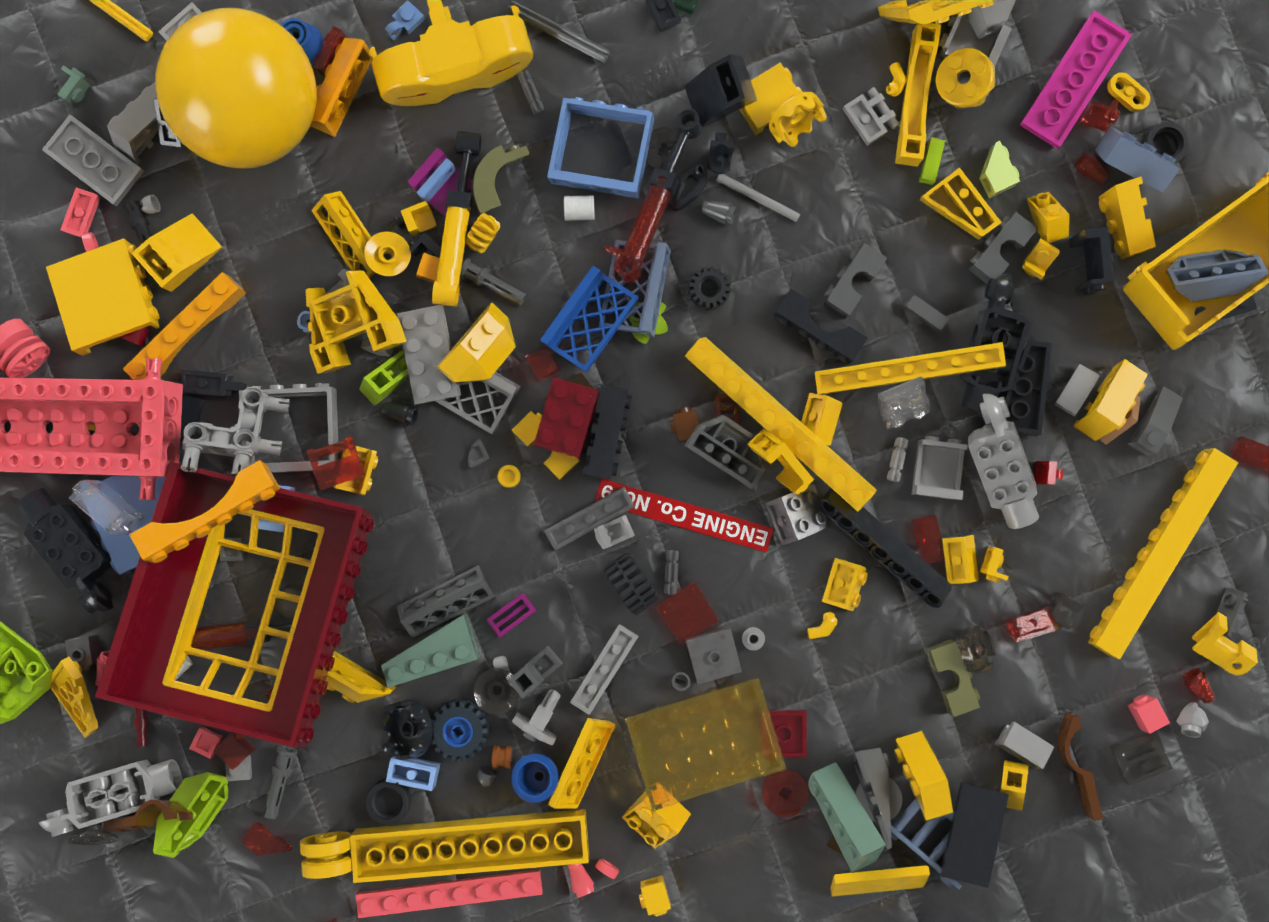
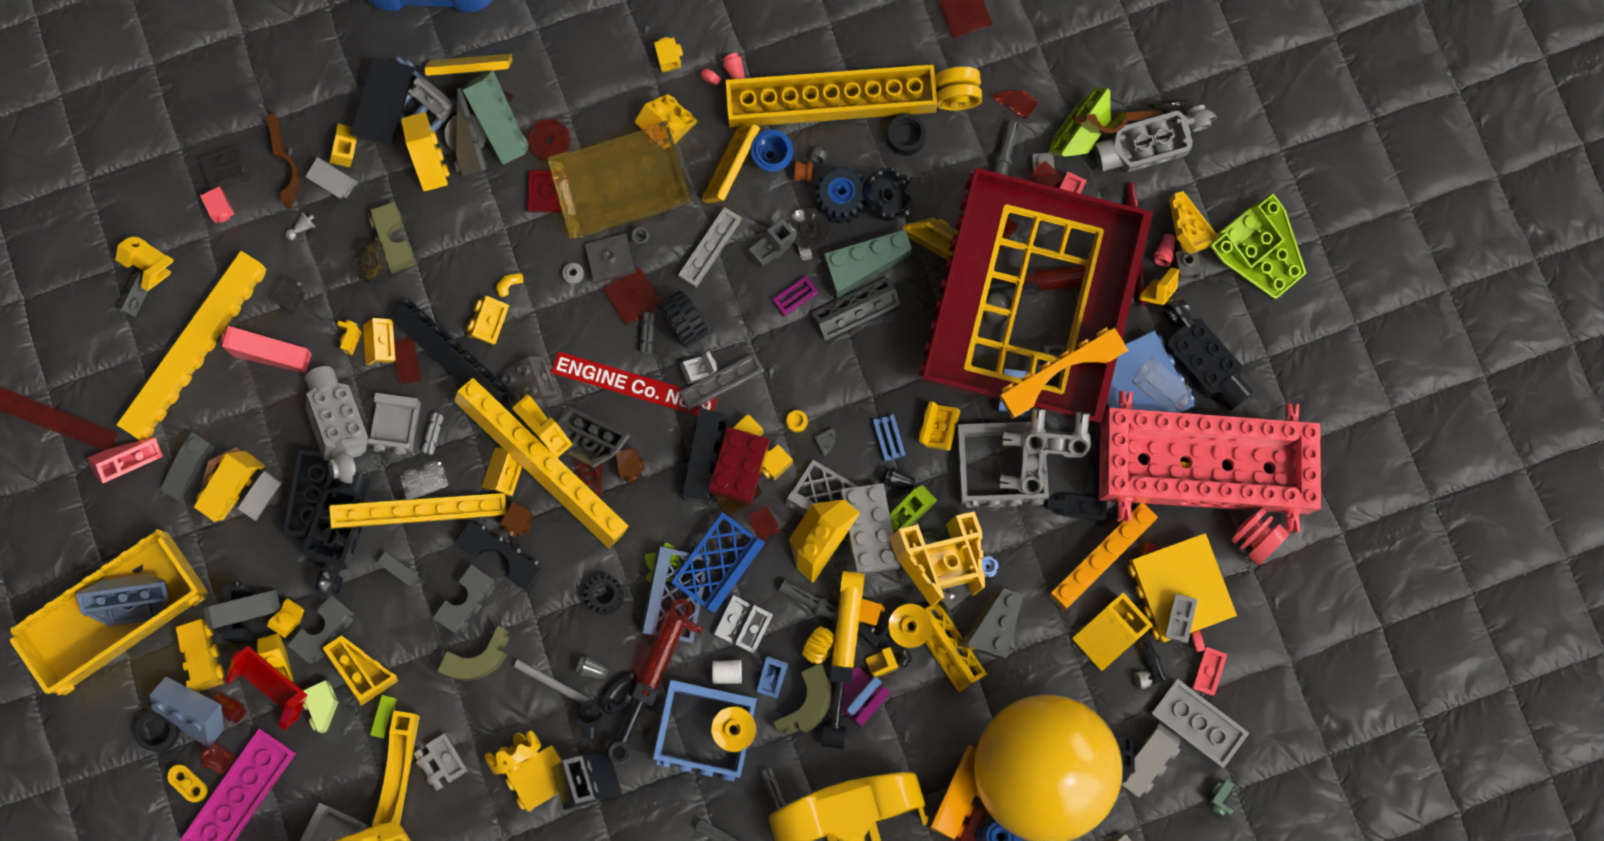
camera: 175 degrees left, 10 degrees down
(97, 257) = (1181, 618): none -> light grey hinge
(106, 622) = (1160, 291): none -> yellow panel
(299, 256) = (995, 625): none -> dark grey wedge
(337, 470) = (951, 422): clear red plate -> none
(404, 440) = (884, 420): none -> medium blue tile
(413, 772) = (880, 156): light blue brick -> none
(449, 893) = (852, 57): coral plate -> none
(531, 204) = (772, 677): none -> medium blue slope
(534, 728) = (772, 196): light grey piece -> none
(564, 259) = (742, 624): none -> flat silver slope
(567, 131) = (745, 729): none -> yellow dish
(803, 364) = (517, 520): none -> reddish brown brick
(843, 209) = (478, 667): none -> olive arch
(899, 81) = (411, 797): yellow arm -> none
(918, 838) = (432, 98): none -> light grey hinge
(976, 89) = (332, 797): yellow plate -> none
(1031, 624) = (318, 282): clear red plate -> none
(1046, 472) = (294, 418): red tile -> none
(1052, 191) = (269, 682): none -> red panel
(1052, 693) = (303, 223): none -> light grey piece
(1084, 547) = (265, 350): none -> coral slope
(1090, 259) = (242, 609): none -> dark grey tile
(1192, 720) = (178, 199): light grey rock -> none
(1198, 683) = (169, 230): clear red cone -> none
(1226, 427) = (124, 459): none -> coral slope

